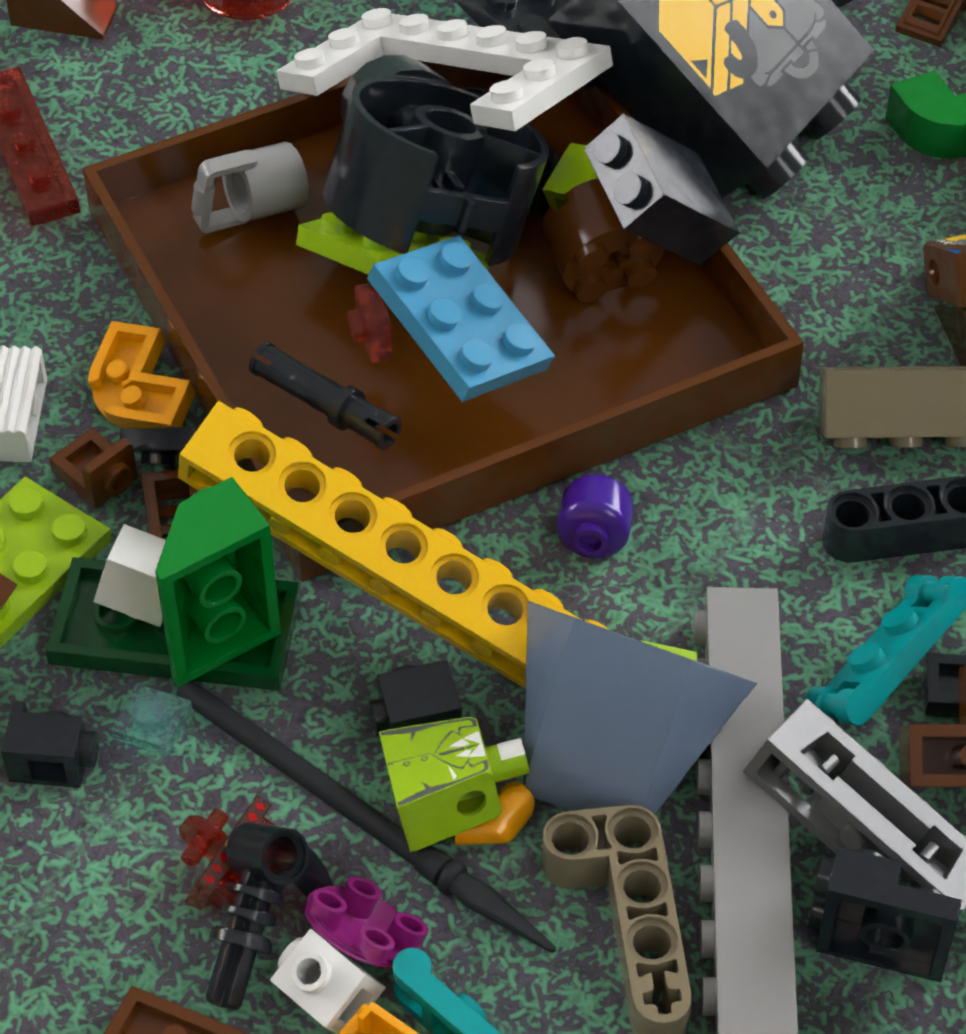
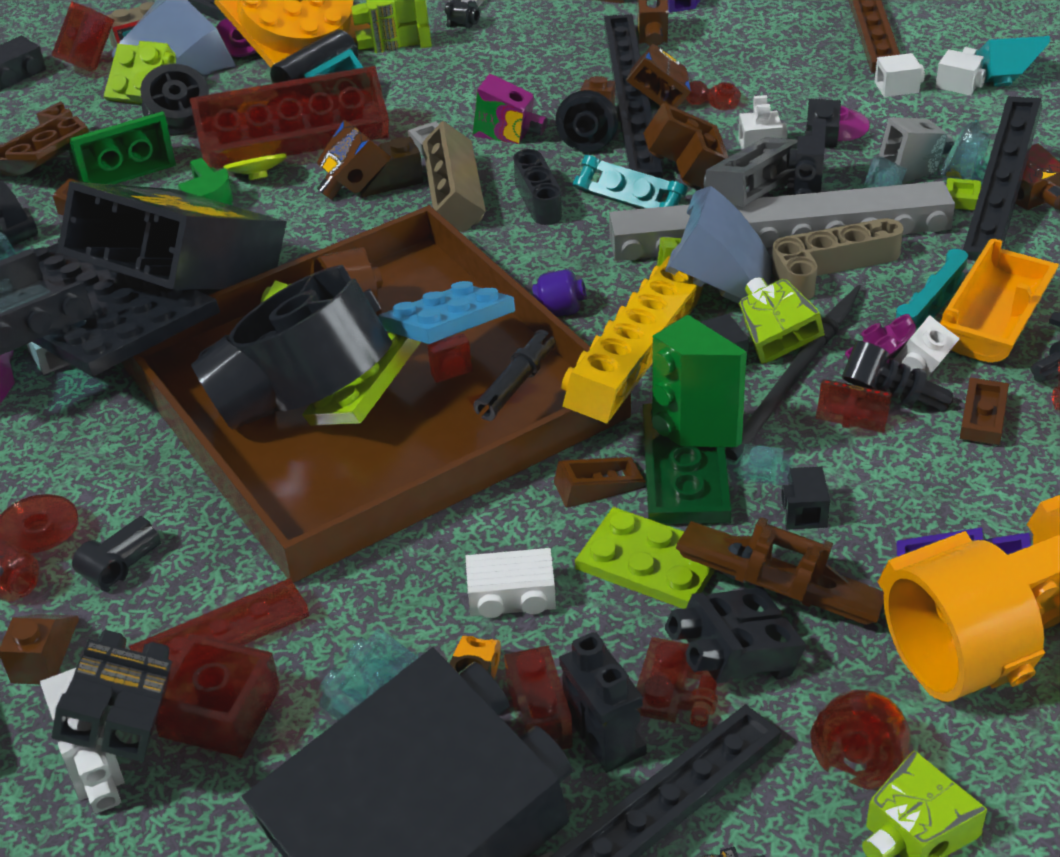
camera: 95 degrees left, 10 degrees down
(95, 467) = (563, 519): reddish brown bracket -> none
(125, 384) = (477, 526): light orange plate -> none
(130, 576) = (677, 447): white brick -> none
(158, 445) = (543, 473): black plate -> none
(172, 47) = (110, 560): none -> black piece
(255, 185) = (294, 459): light grey piece -> none
(540, 66) = (134, 413): white plate -> none
(661, 190) = (332, 232): black brick -> none

